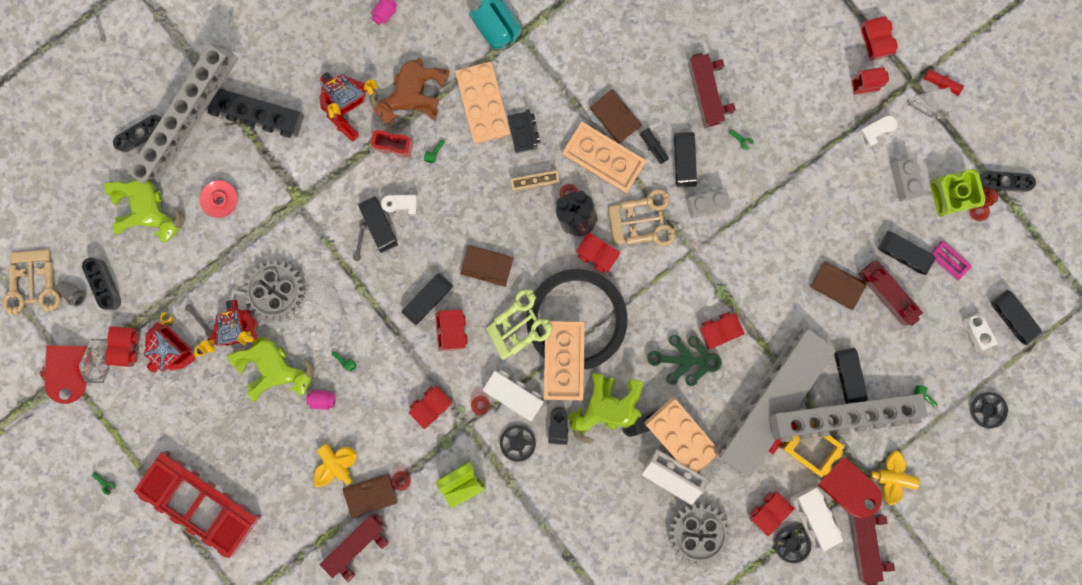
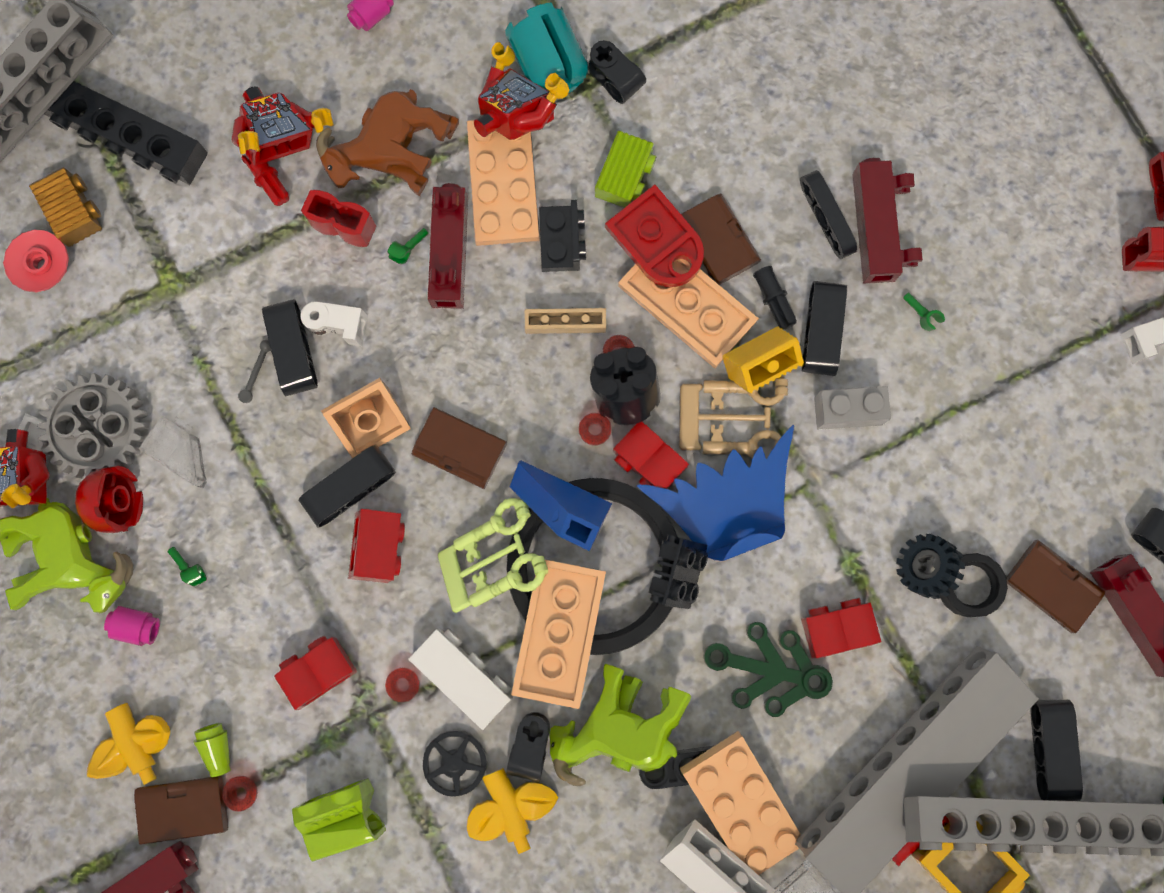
camera: 10 degrees right, 5 degrees down
(228, 163) = (66, 206): none -> pearl gold brick
(292, 331) = (109, 500): none -> red cylinder
(382, 459) = (213, 748): none -> lime cone
(431, 258) = (366, 418): none -> light nougat slope
(458, 148) = (448, 247): none -> dark red brick
(482, 57) = (513, 102): none -> torso
(540, 27) = (615, 71): none -> black piece
(553, 85) = (624, 170): none -> lime brick
(553, 289) = (562, 506): none -> blue slope
(553, 463) = (509, 810): none -> yellow plant
(568, 237) = (590, 419): none -> clear red plate
(579, 122) = (656, 236): none -> red tile
(630, 306) = (682, 586): none -> black hinge
(650, 274) = (733, 509): none -> blue piece
(653, 184) = (763, 359): none -> yellow brick
(677, 91) = (828, 214): none -> black beam
(774, 286) = (945, 564): none -> black bush
(805, 296) = (997, 593): none -> black tyre

